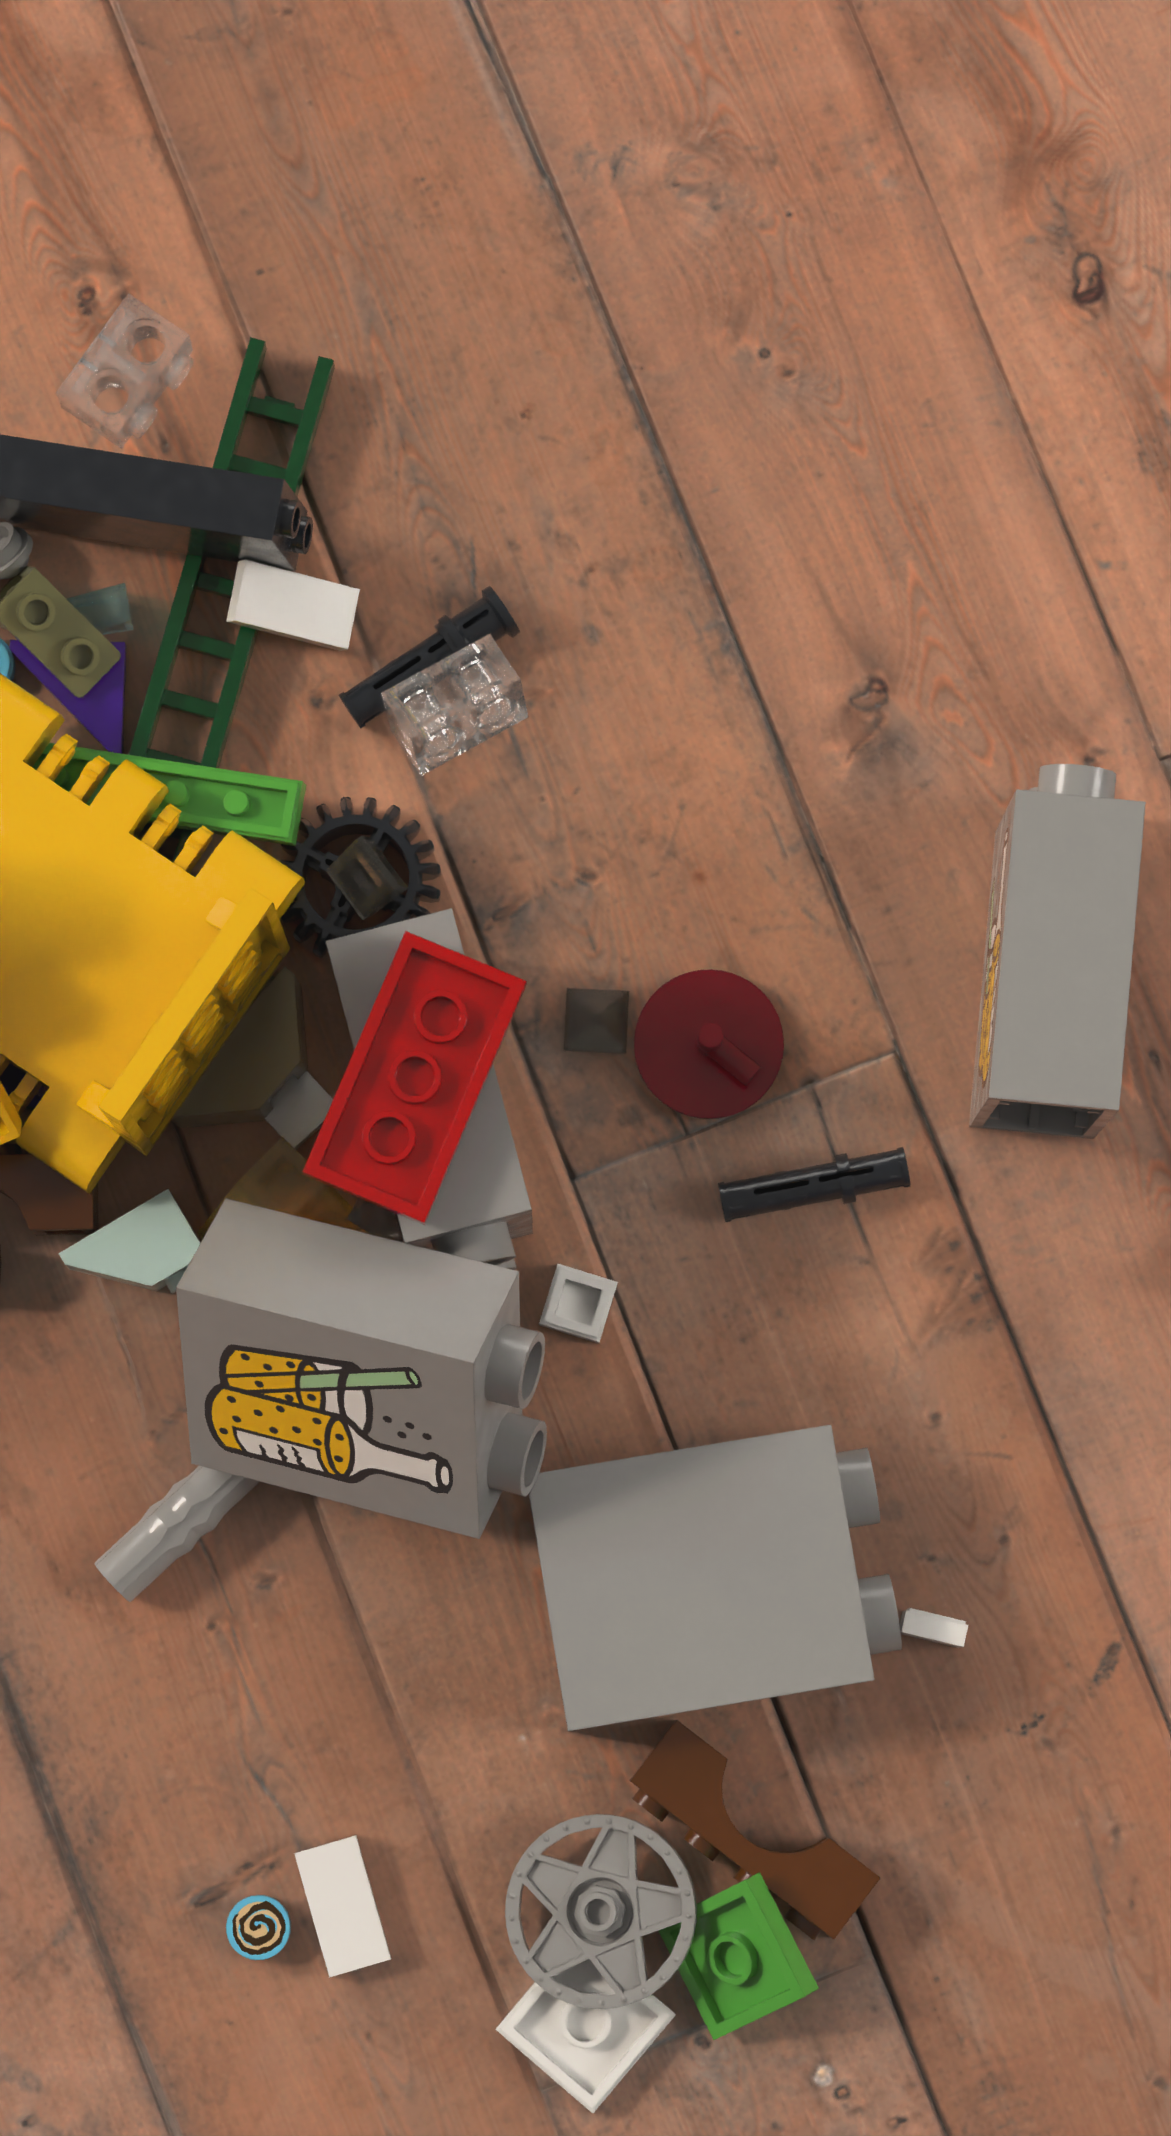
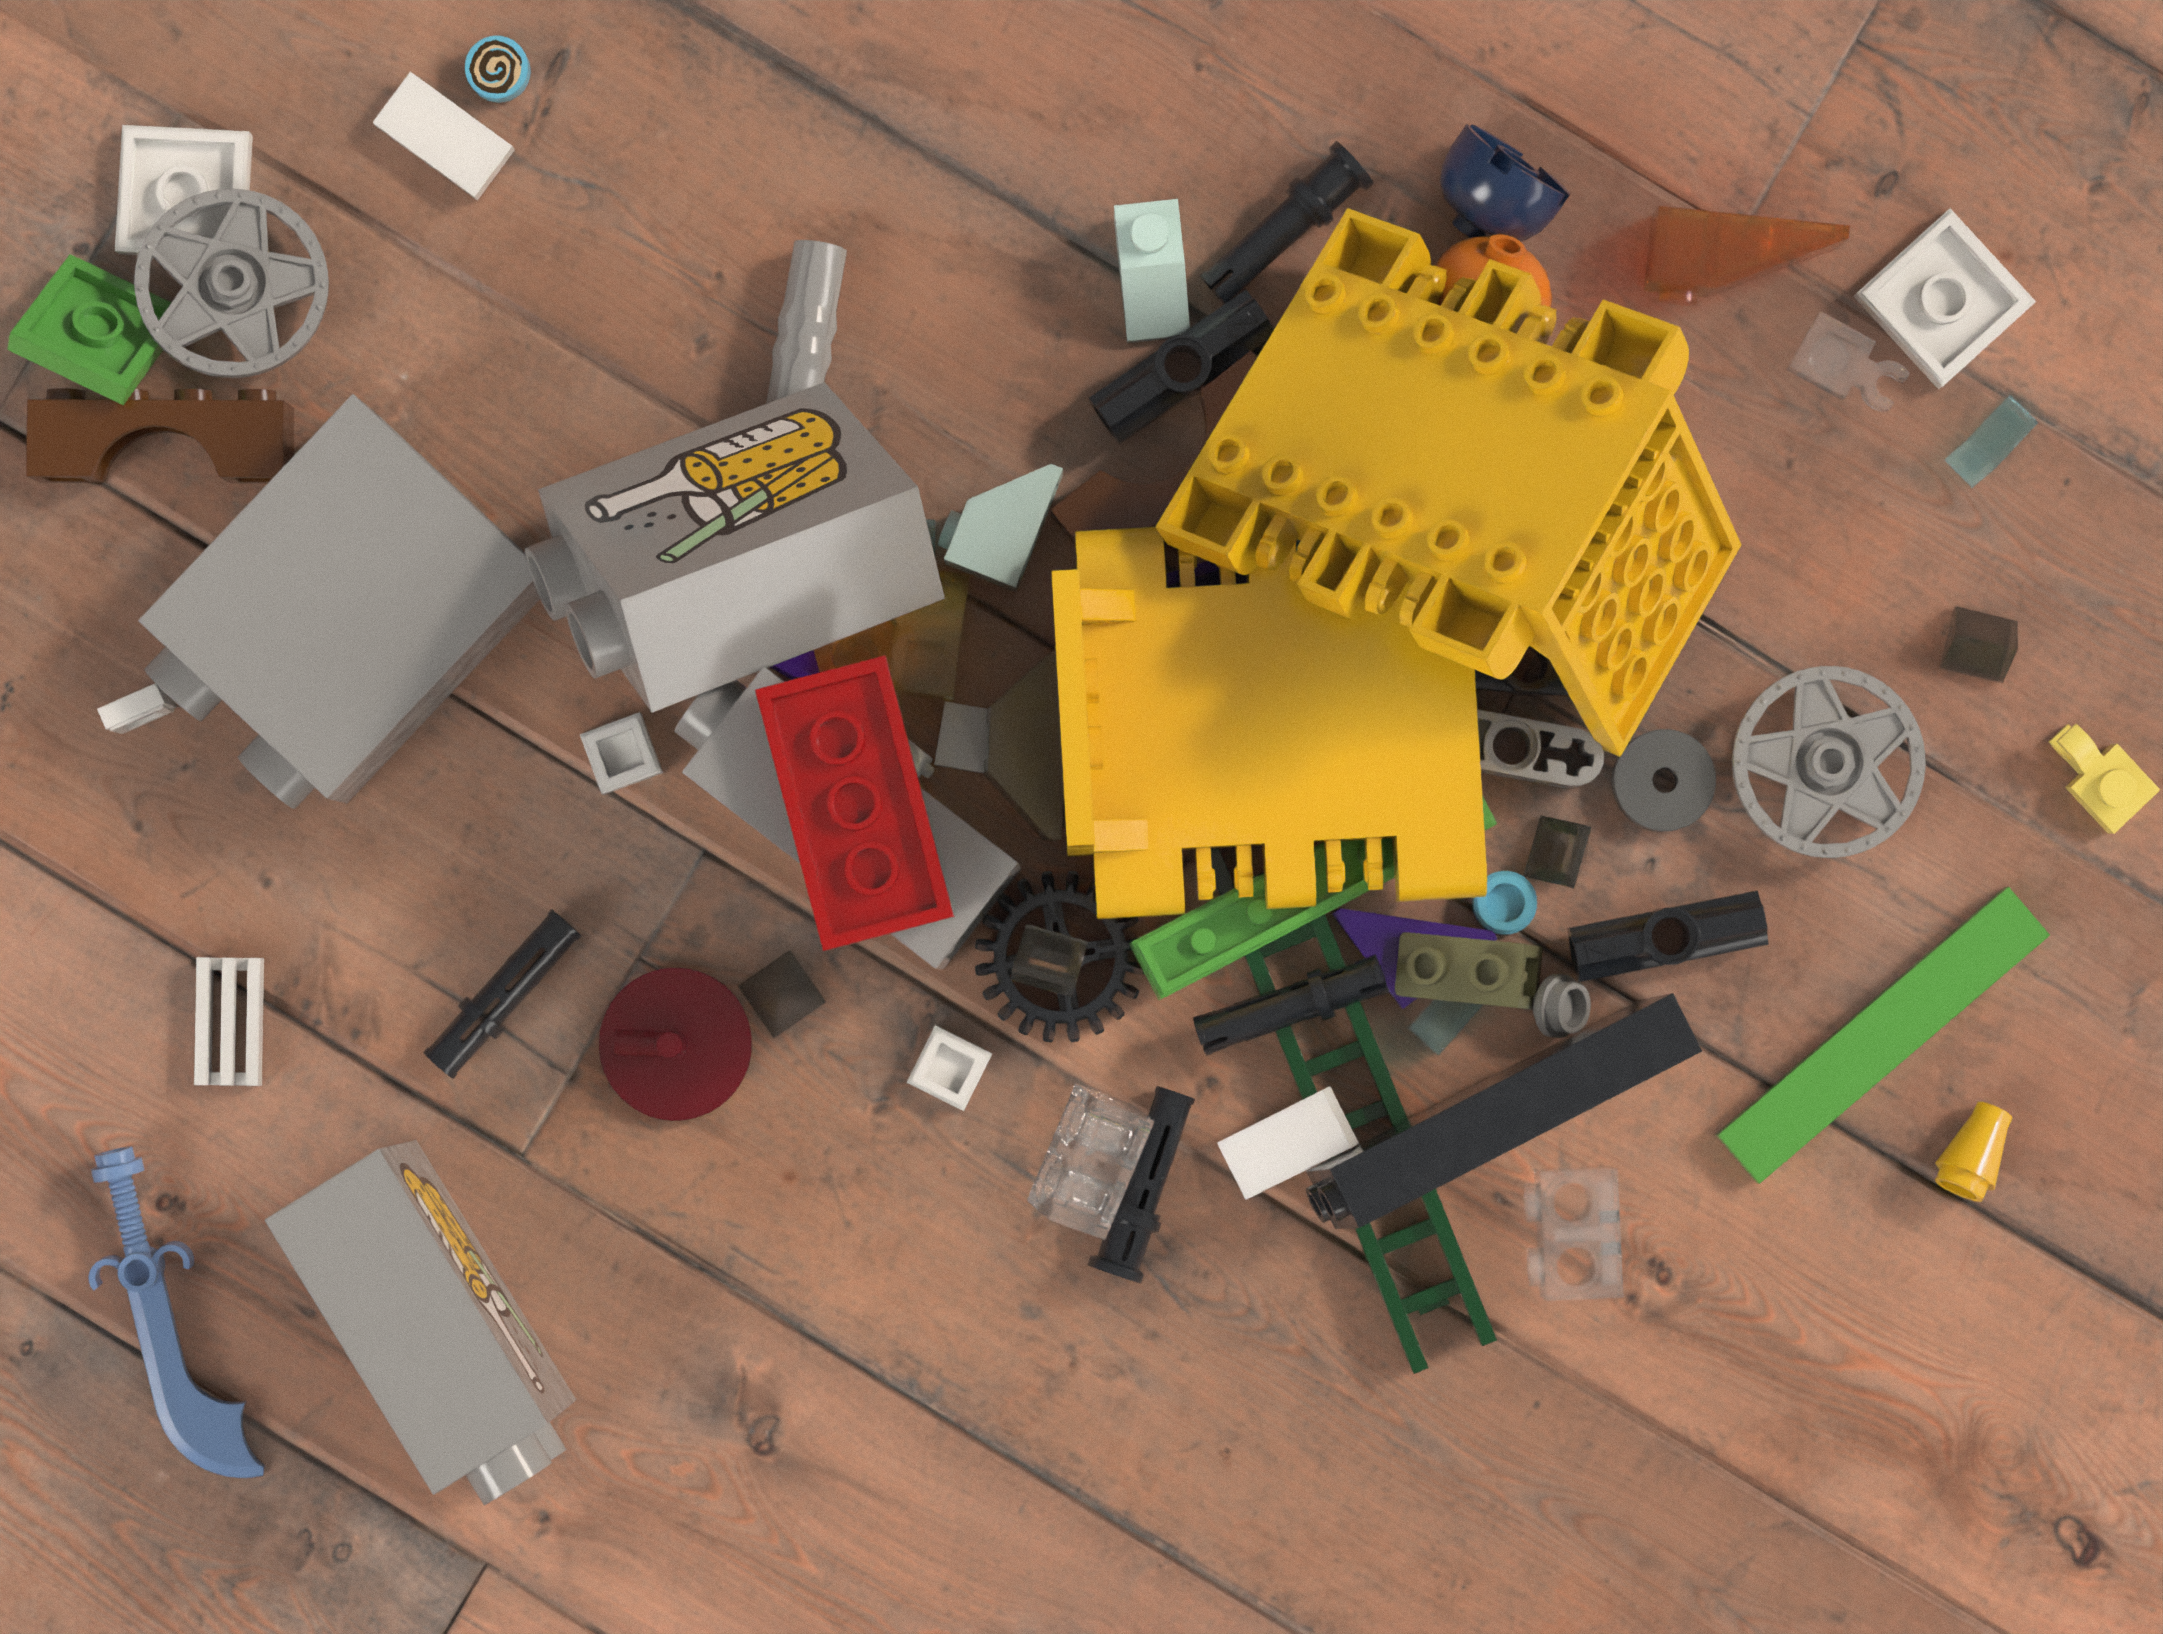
camera: 145 degrees right, 5 degrees up
(203, 703) = (1304, 1000): none -> black pin
(510, 864) = (949, 1068): none -> white tile
(1078, 1286) = (204, 1021): none -> white tile

